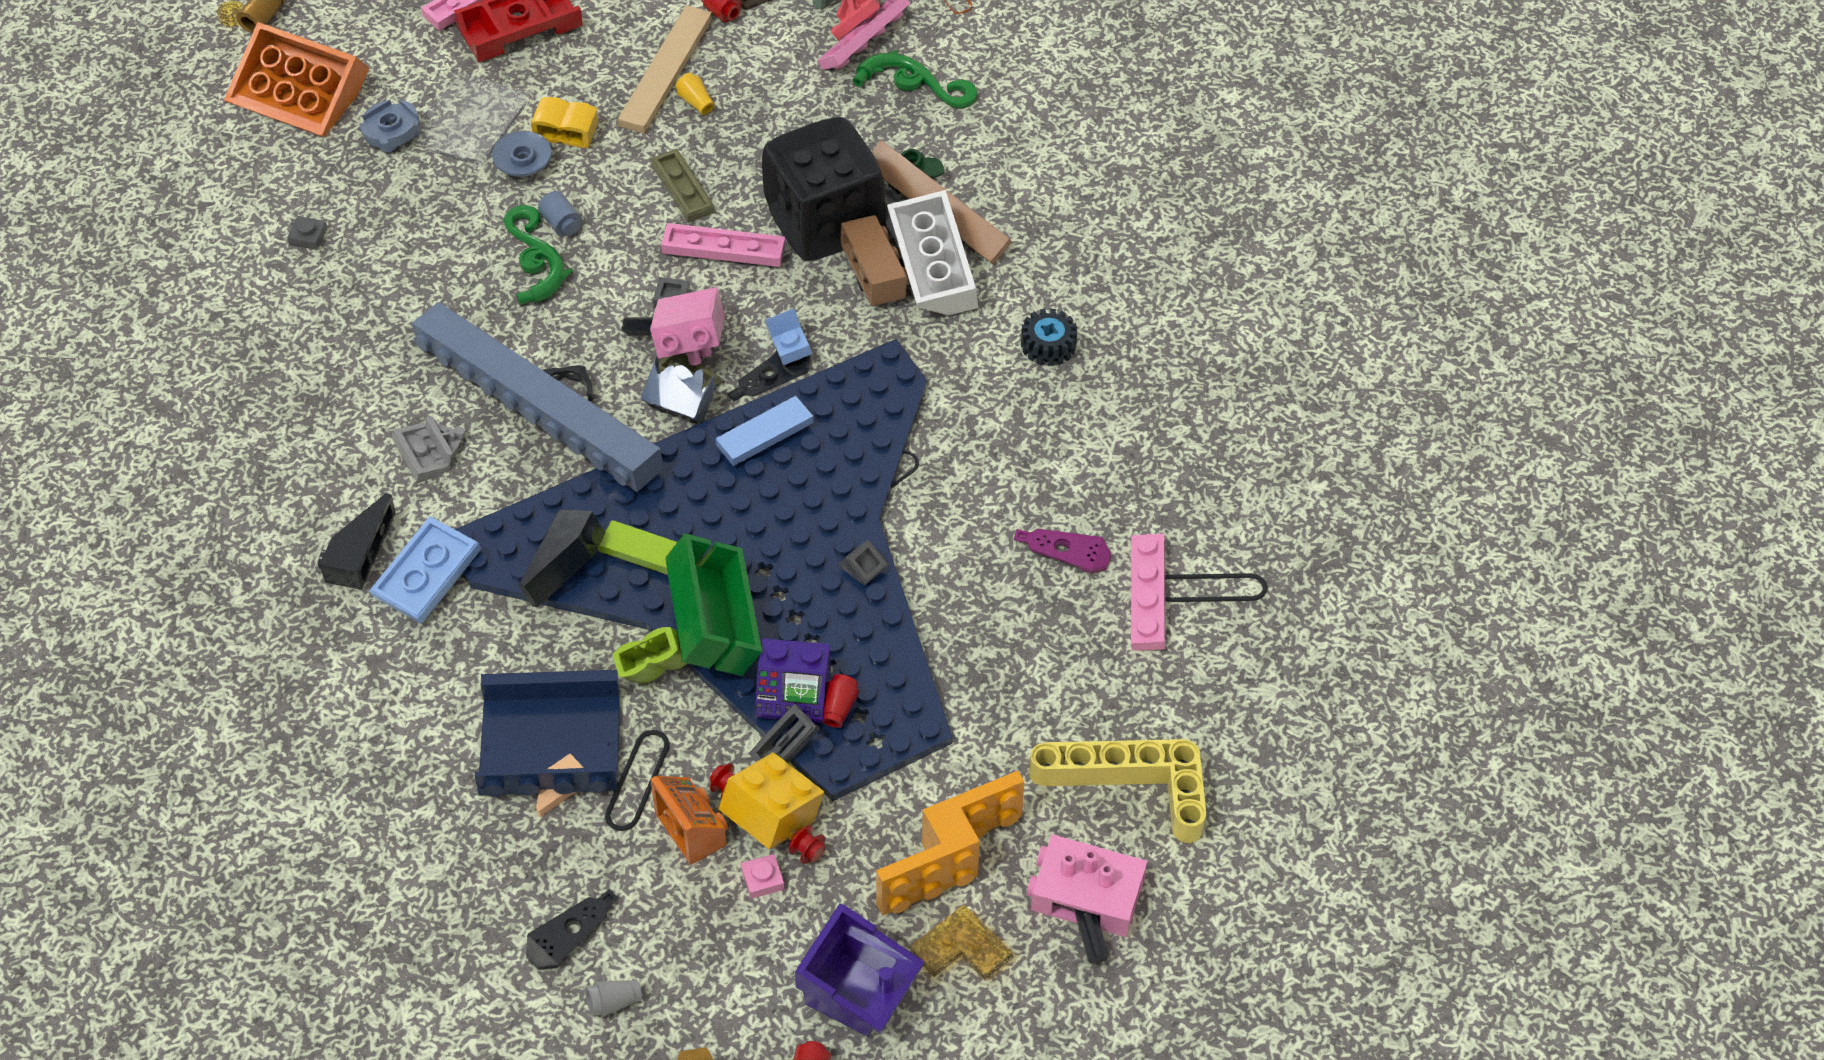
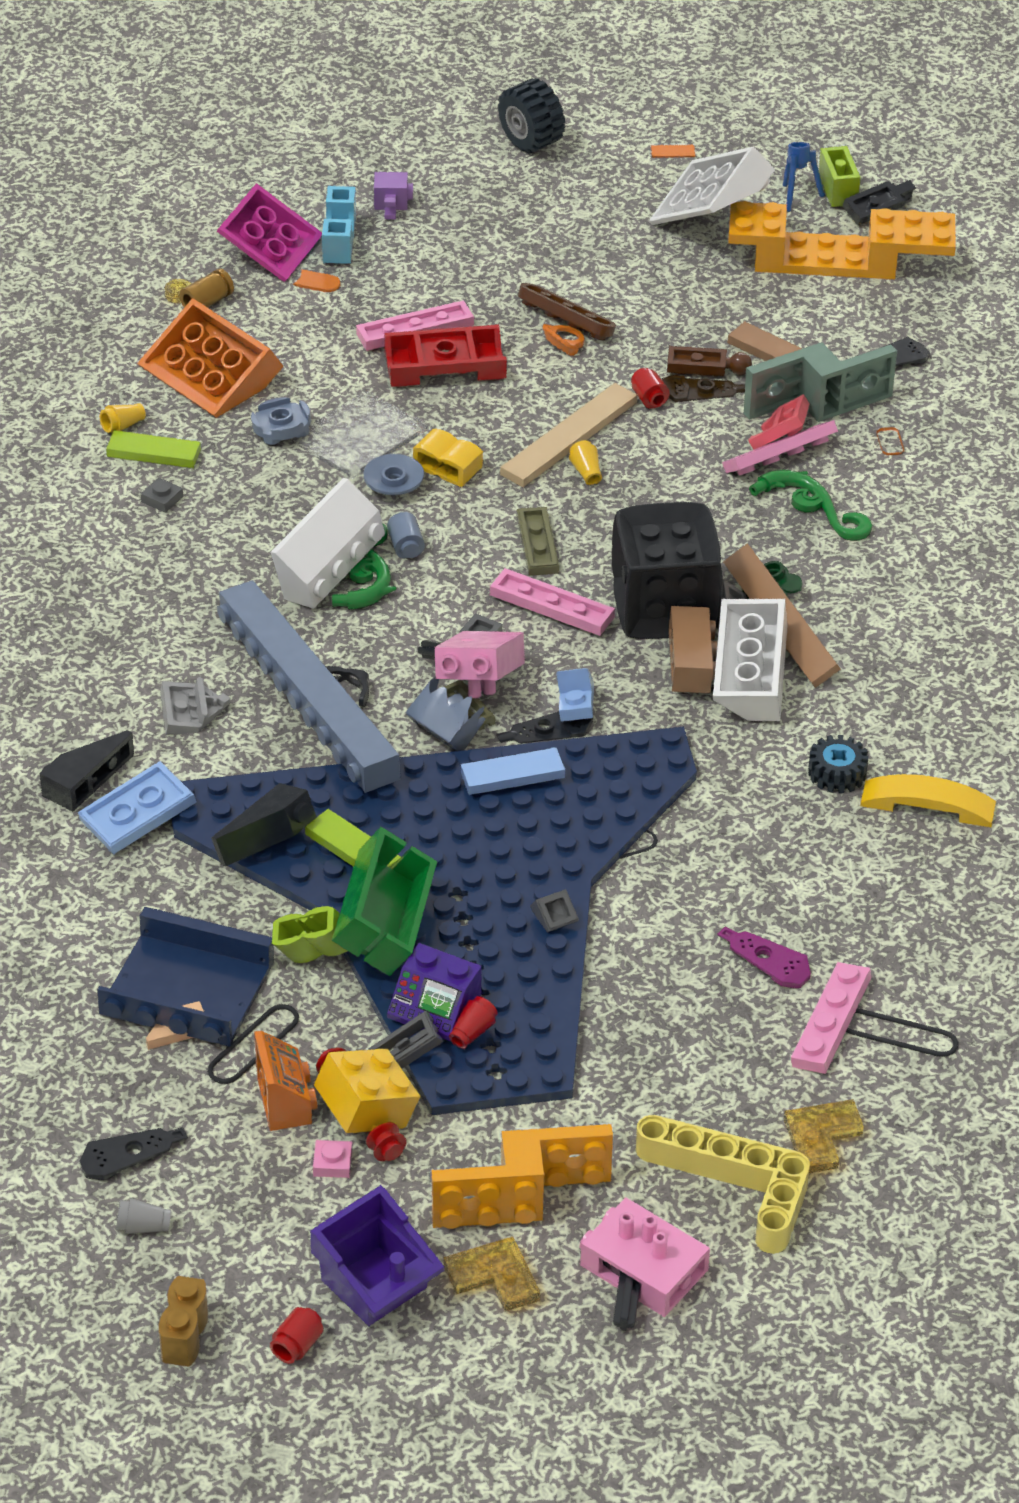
camera: 20 degrees right, 10 degrees down
(232, 162) = (121, 416): none -> yellow cone
(278, 186) = (153, 449): none -> lime tile
(495, 246) = (326, 544): none -> white slope
(1140, 344) = (929, 793): none -> yellow slope
(1183, 705) = (815, 1128): none -> clear yellow plate

